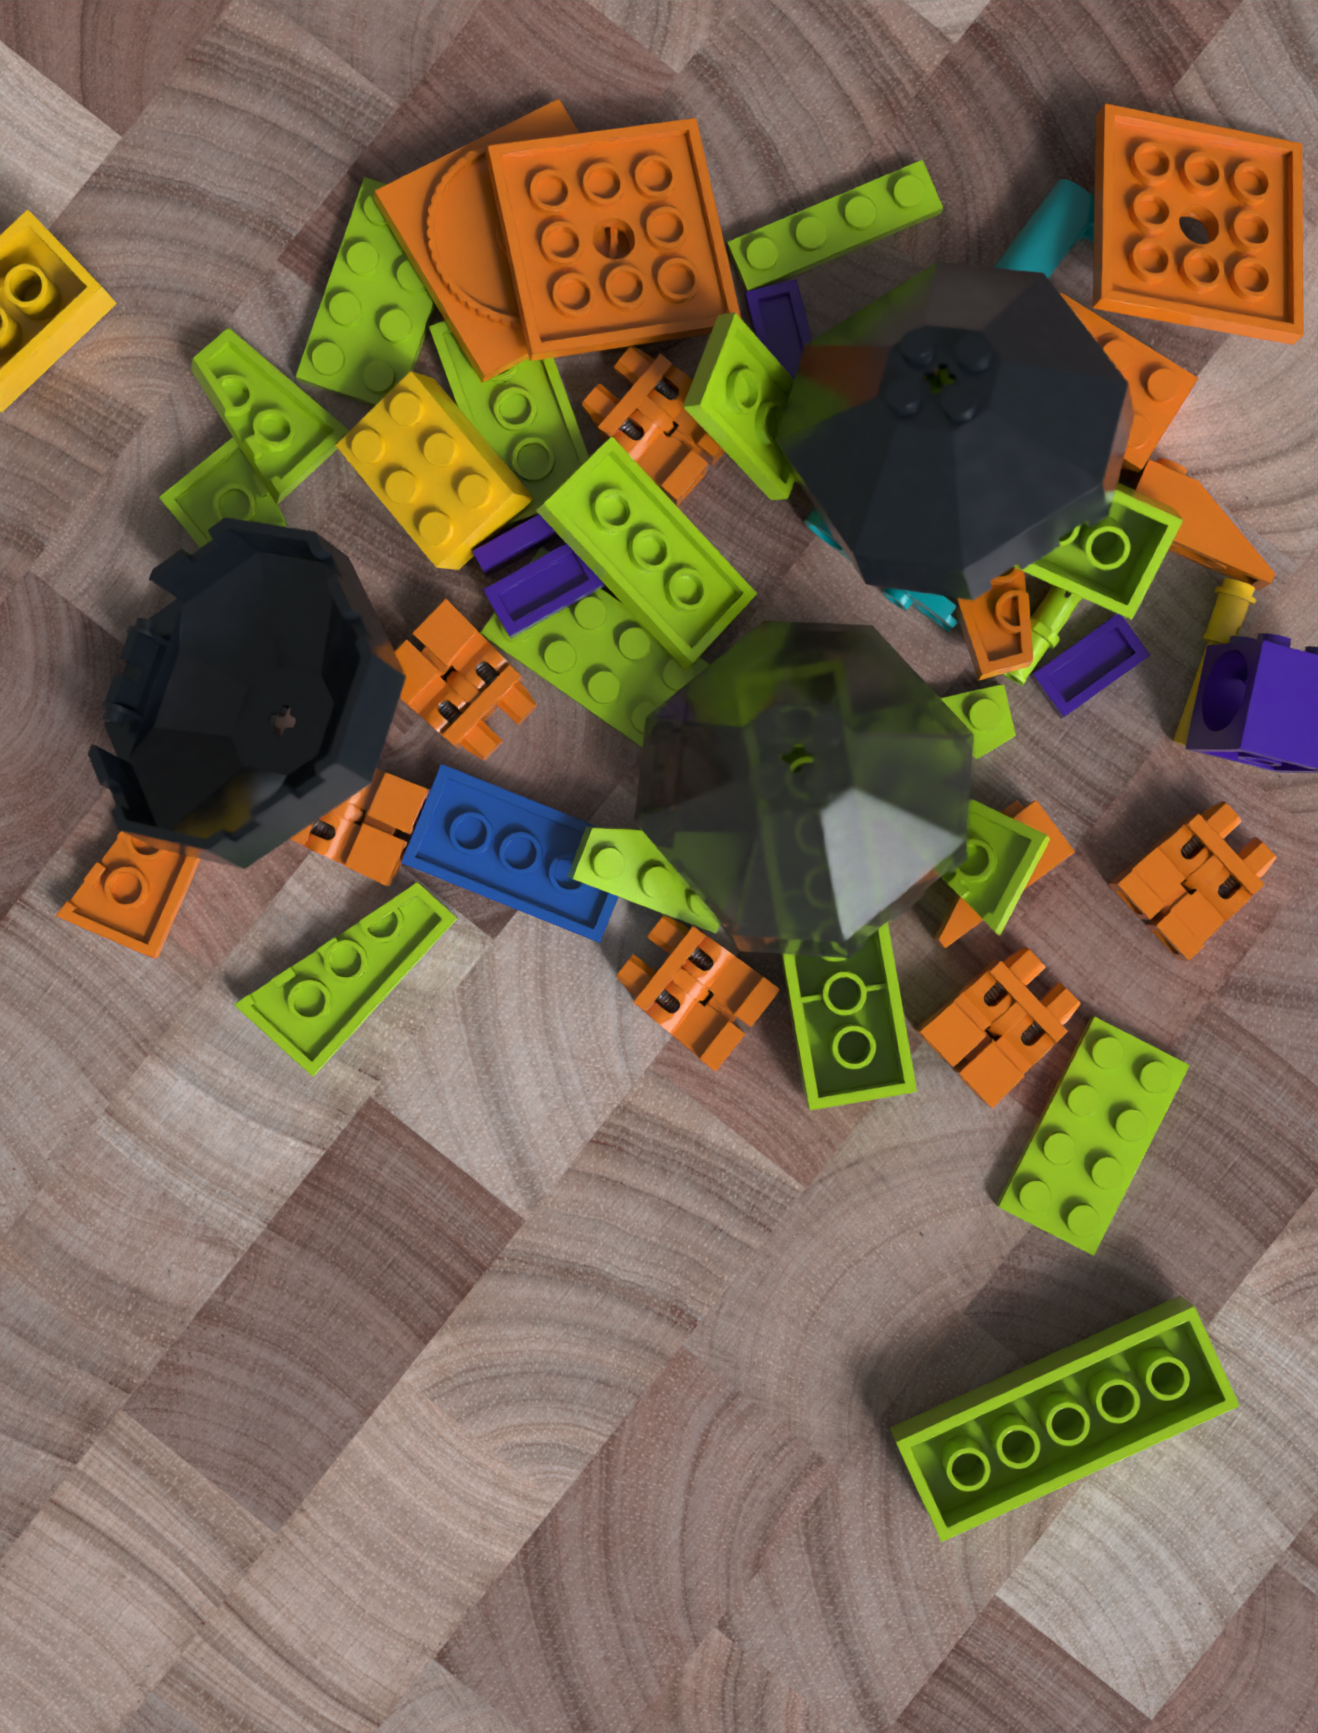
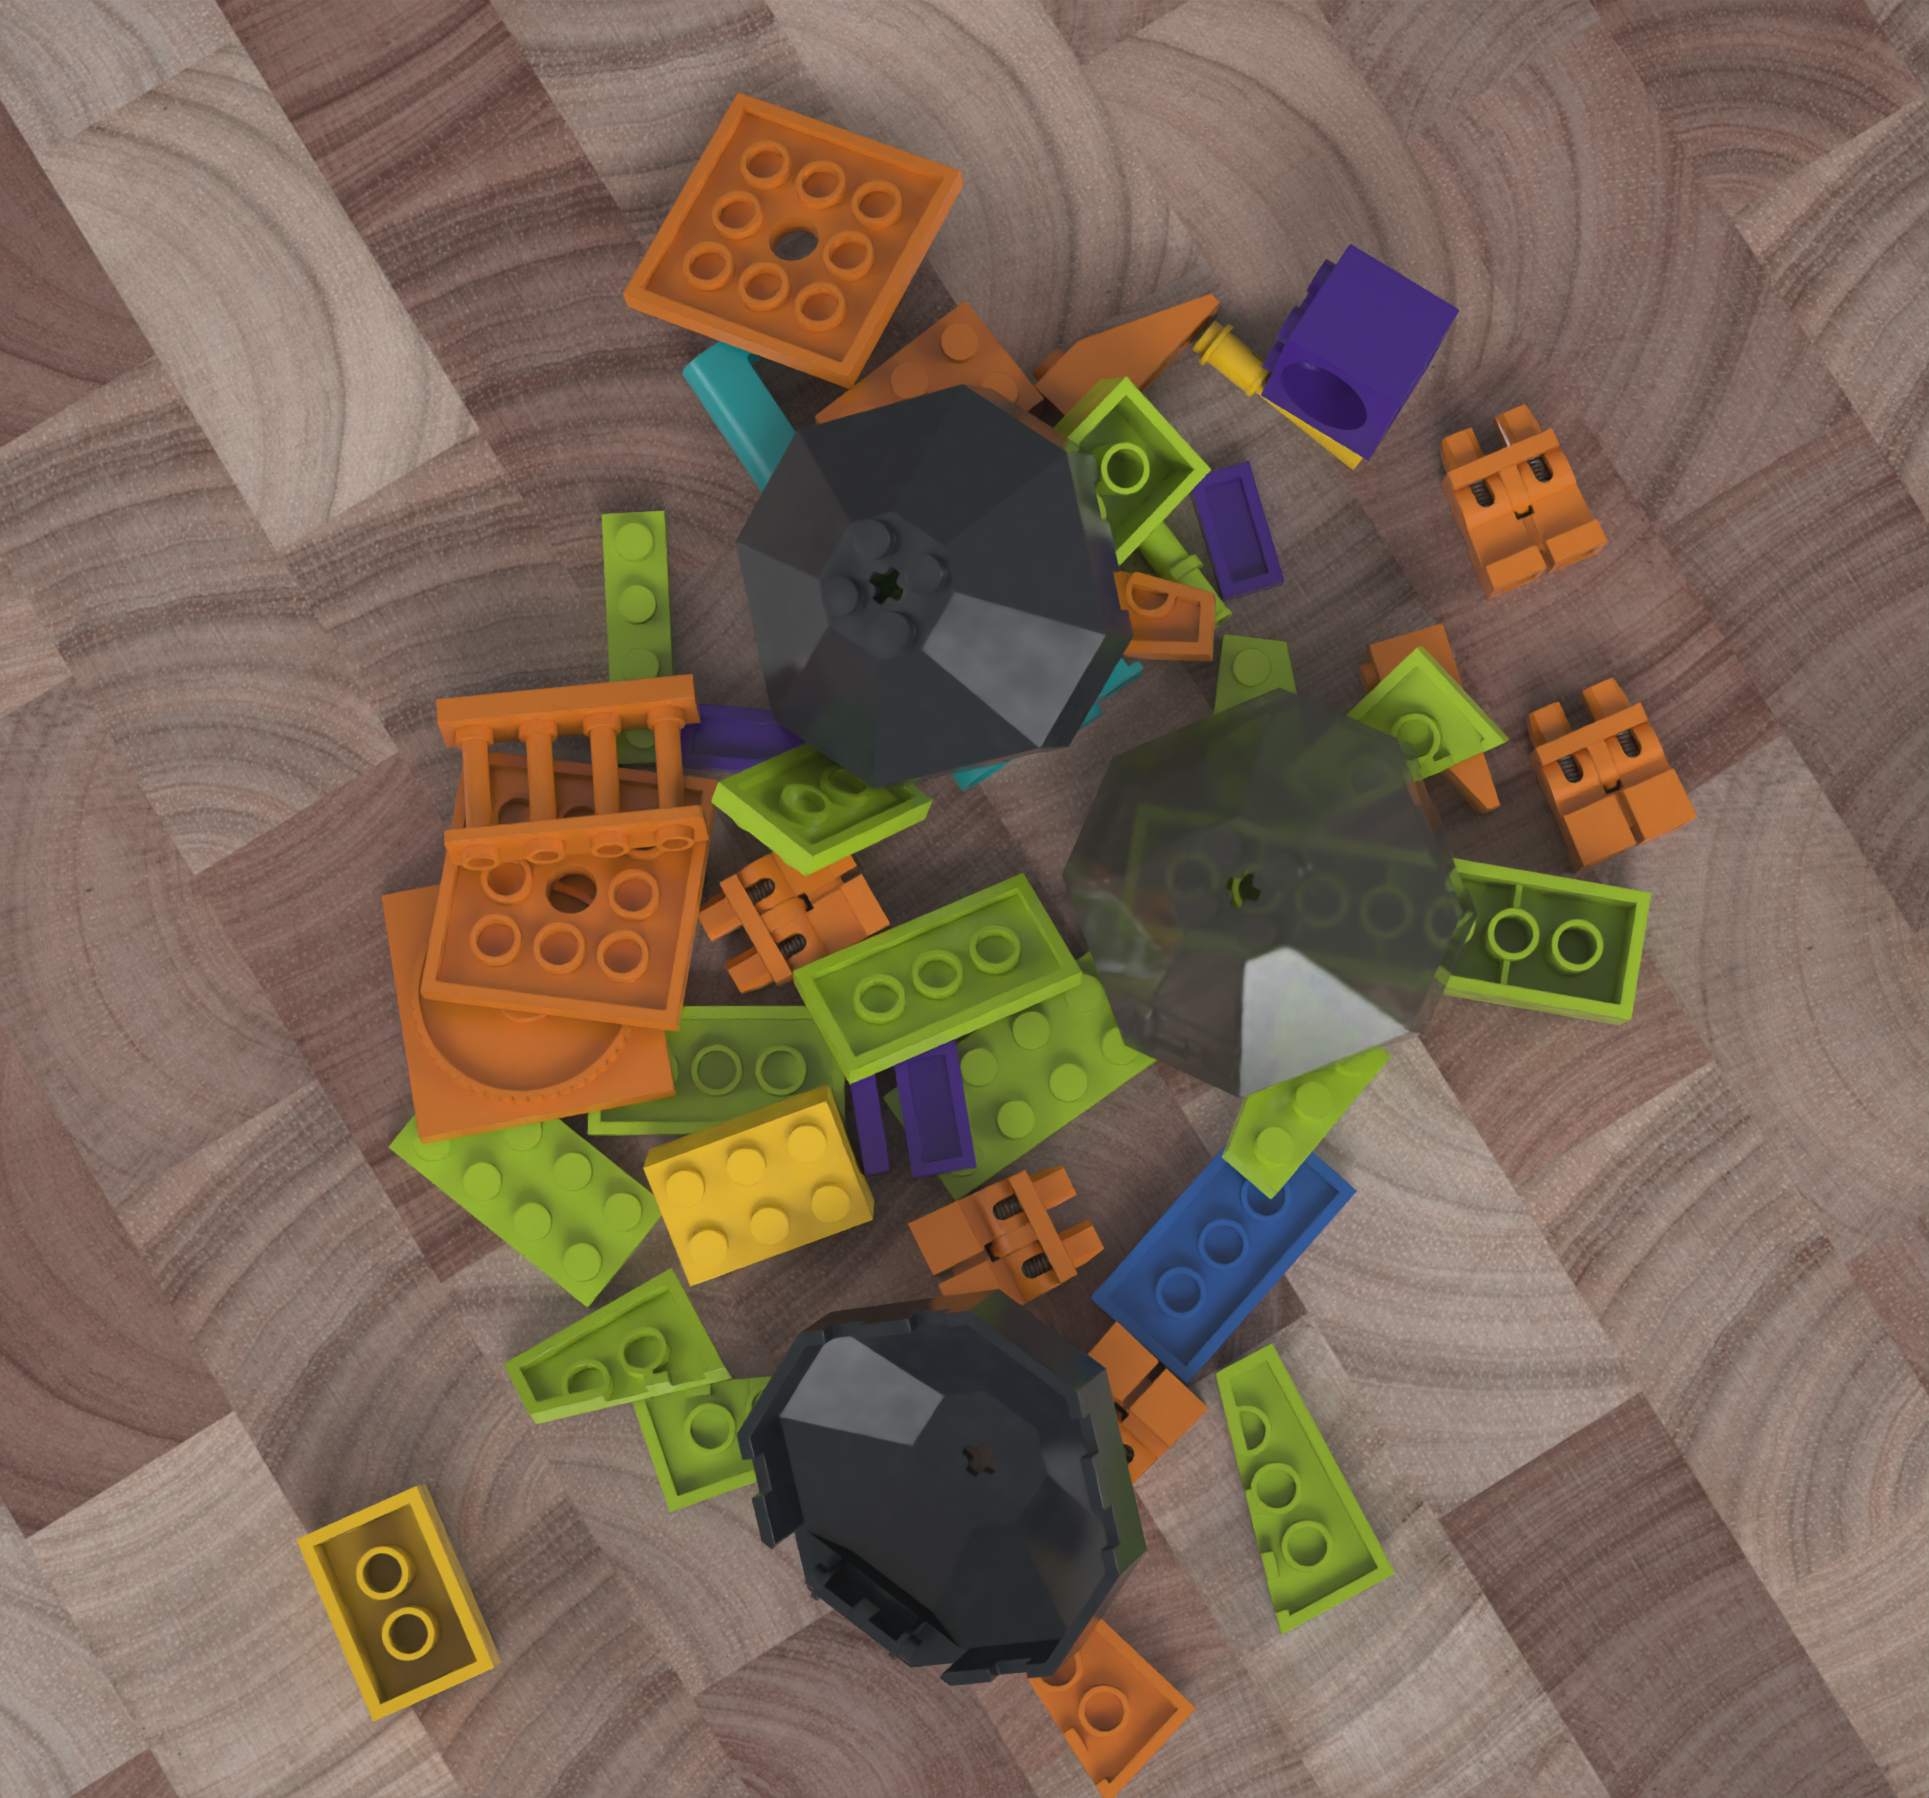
camera: 70 degrees left, 5 degrees down
(701, 1028) = (1493, 1108): orange hips -> none
(737, 163) = (538, 720): none -> orange fence
(1092, 1135) = (1764, 717): lime plate -> none

